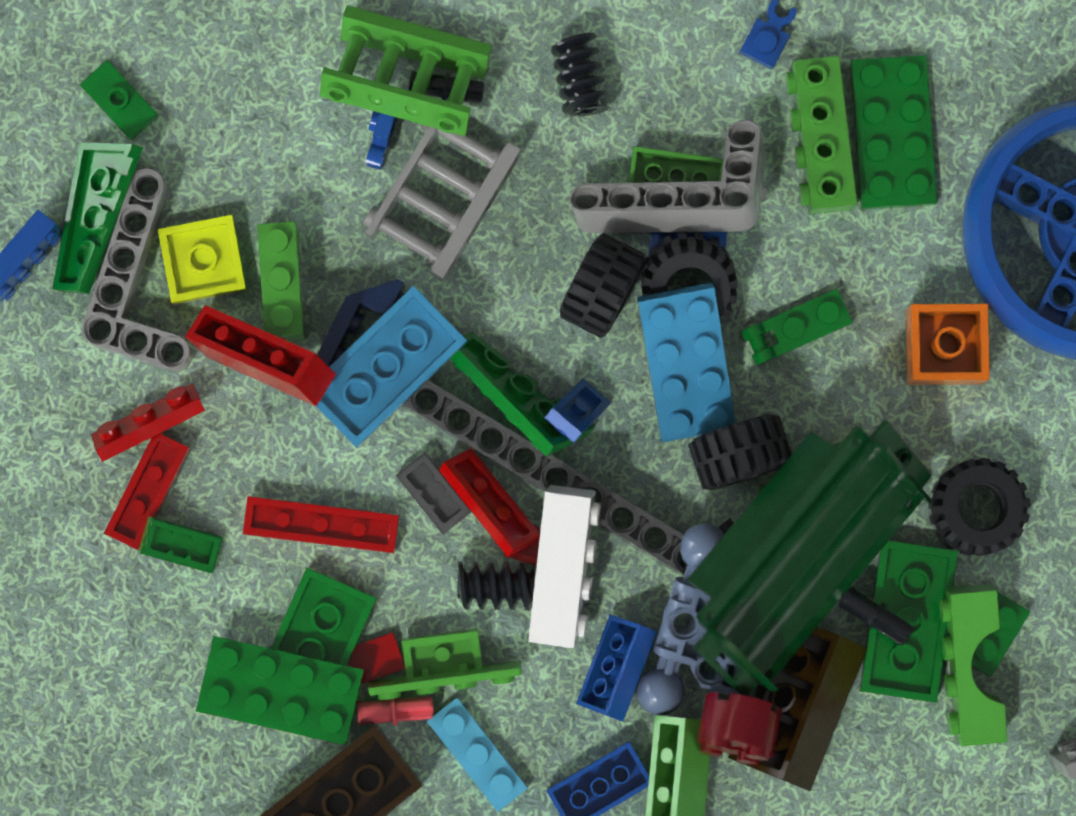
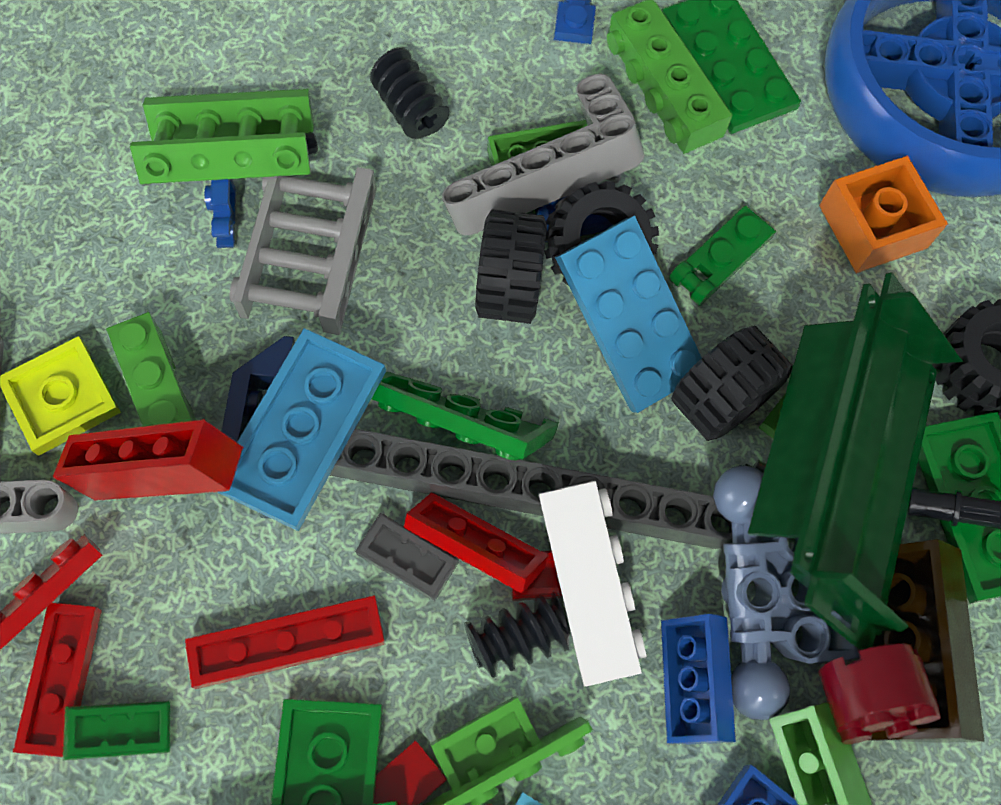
camera: 25 degrees left, 15 degrees down
(577, 410) = (534, 406): blue plate -> none

